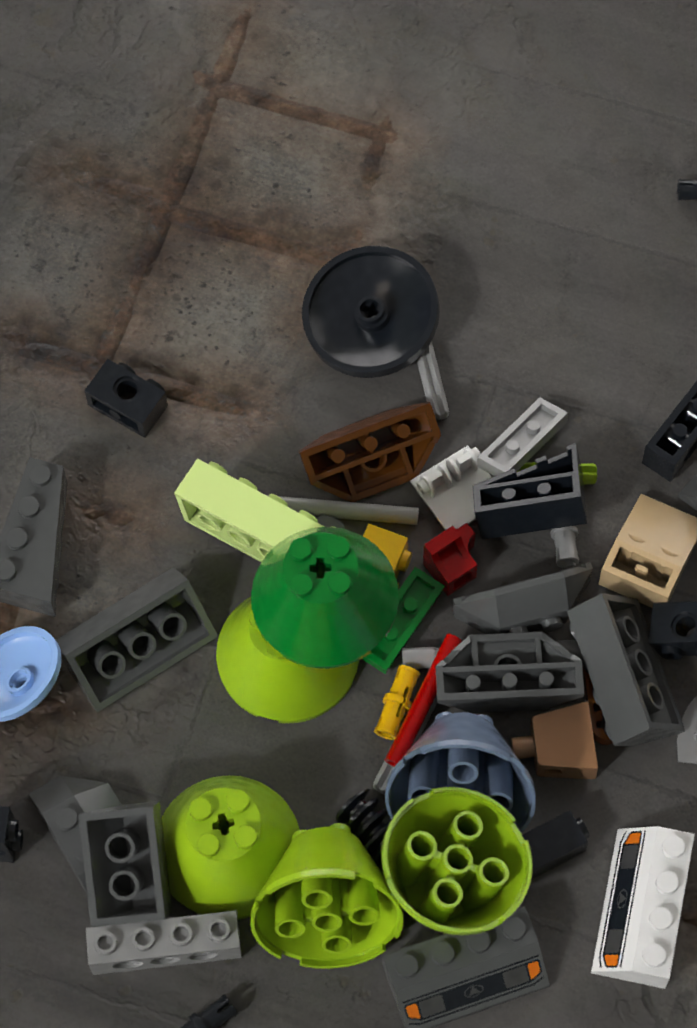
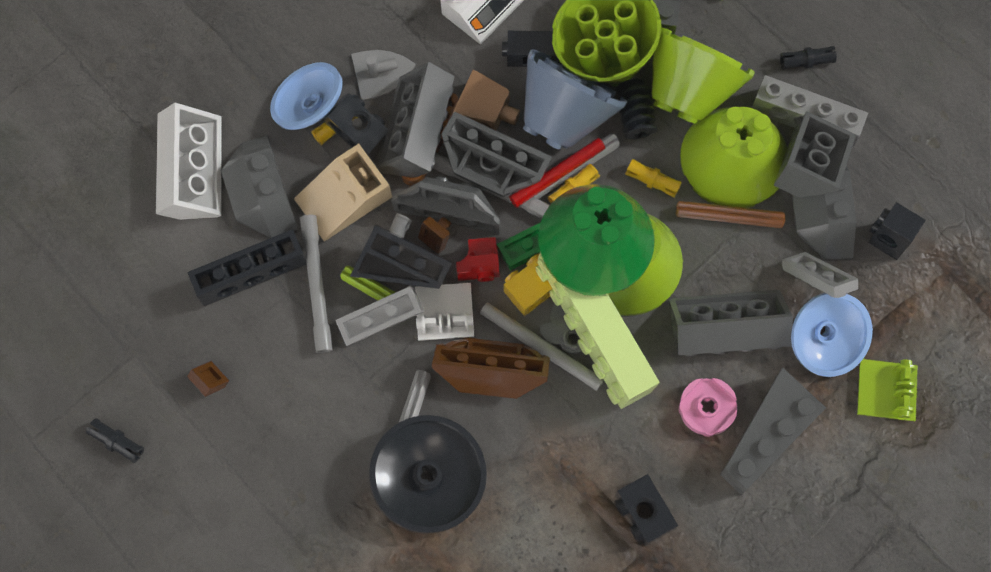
camera: 150 degrees left, 5 degrees up
(56, 725) = (820, 274): none -> light grey plate
(119, 556) = (708, 423): none -> bright pink plate
(197, 769) = (730, 214): none -> dark orange axle
(310, 764) = (653, 178): none -> yellow pin
(520, 563) = (435, 233): none -> reddish brown tile
(653, 481) = (321, 328): none -> light grey piece
(660, 290) = (208, 378): none -> reddish brown plate

